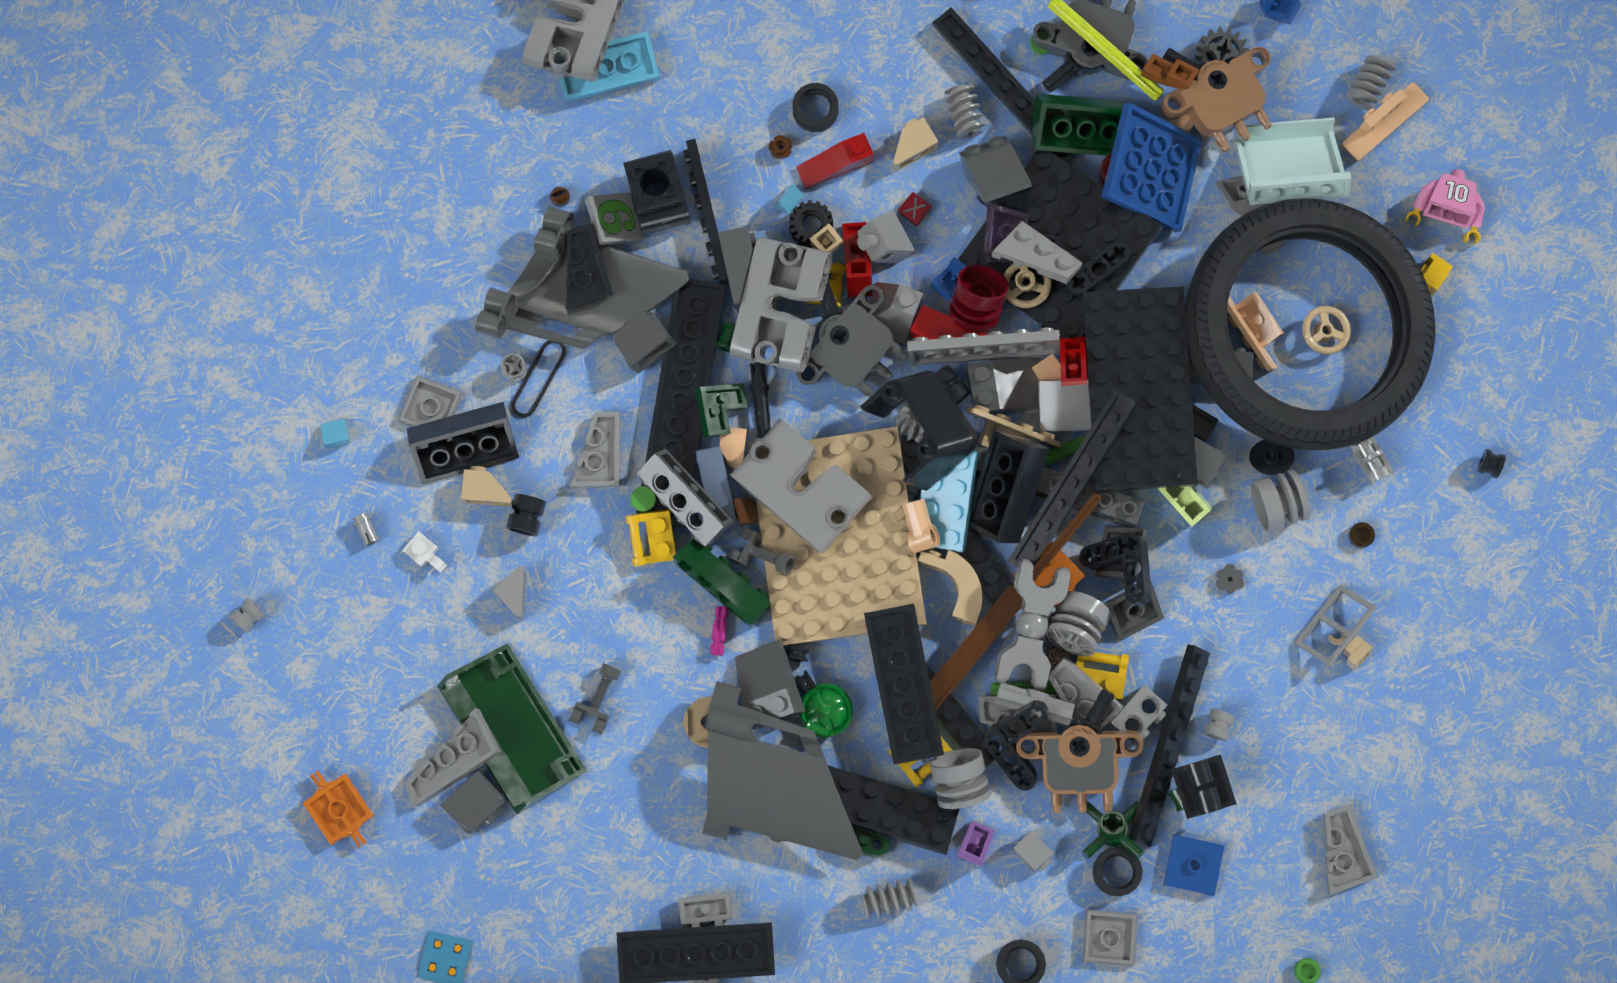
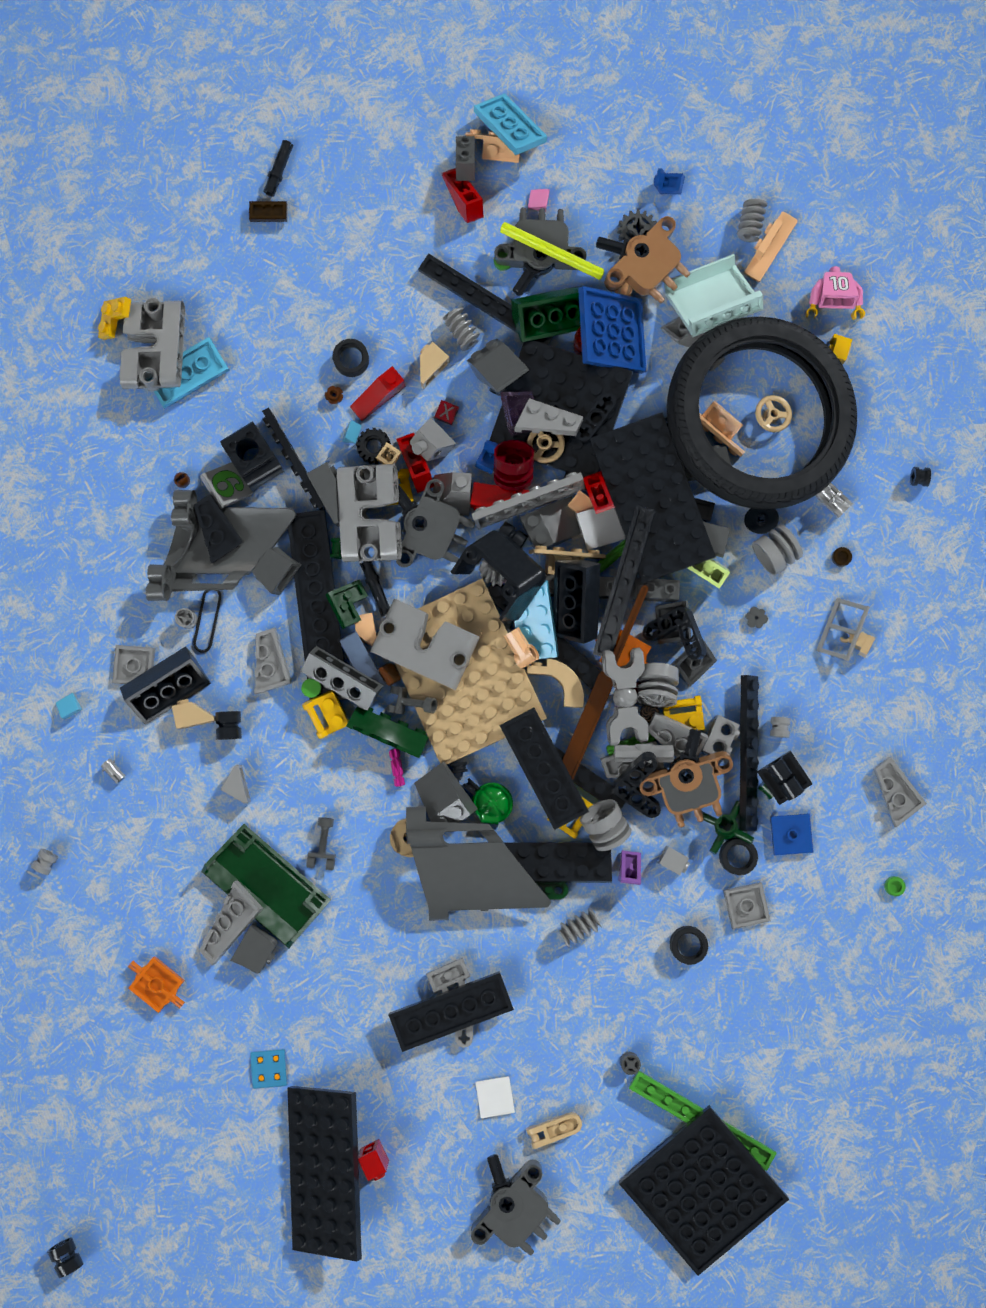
camera: 20 degrees left, 5 degrees up
(424, 551) = (161, 774): white plate -> none
(1174, 75) = (603, 256): dark orange slope -> none

